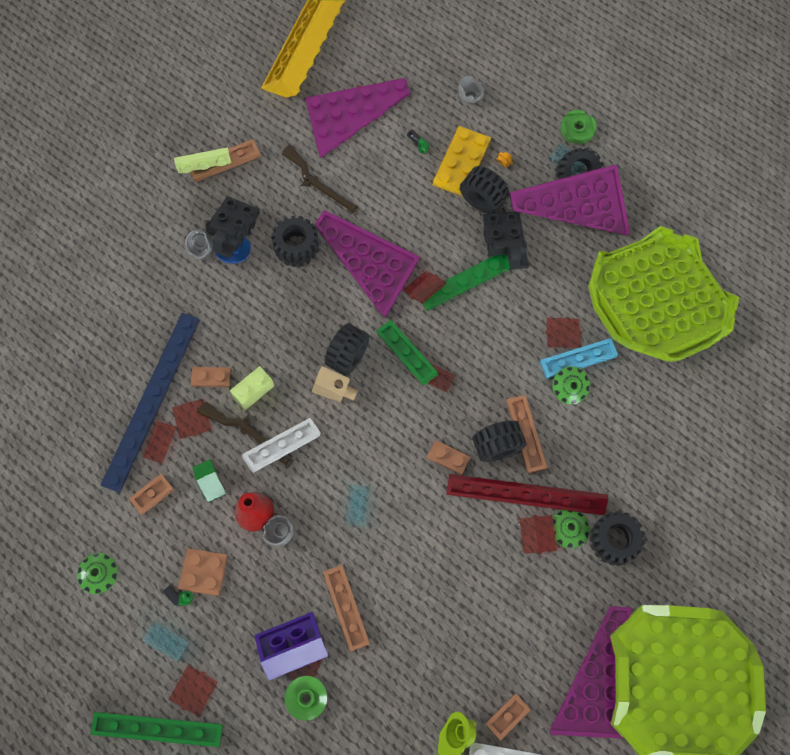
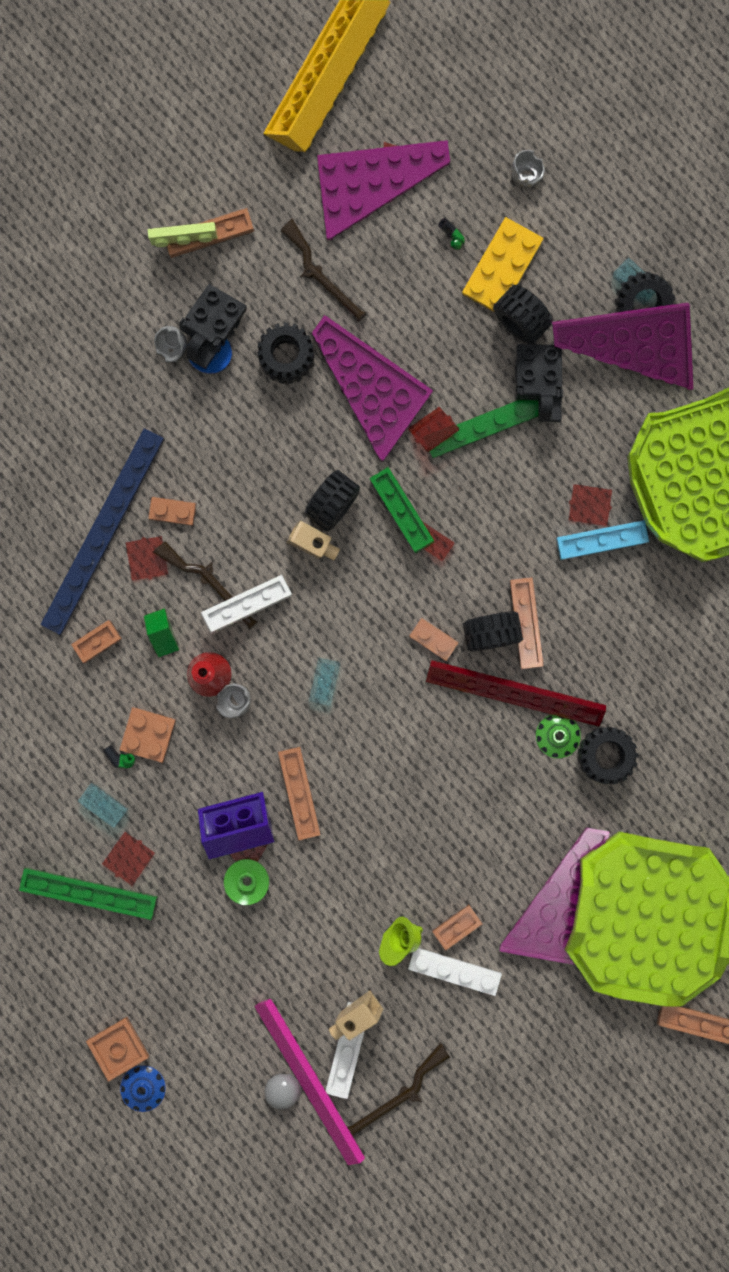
camera: 15 degrees right, 15 degrees up
(106, 577) = (43, 724): bright green dish -> none
(159, 442) = (109, 582): clear red tile -> none
(252, 388) = (218, 532): yellowish green brick -> none
(505, 159) = (556, 270): light orange plate -> none
(538, 534) = (521, 738): clear red piece -> none
(562, 385) = (583, 562): bright green dish -> none
(575, 135) = (664, 227): bright green plate -> none

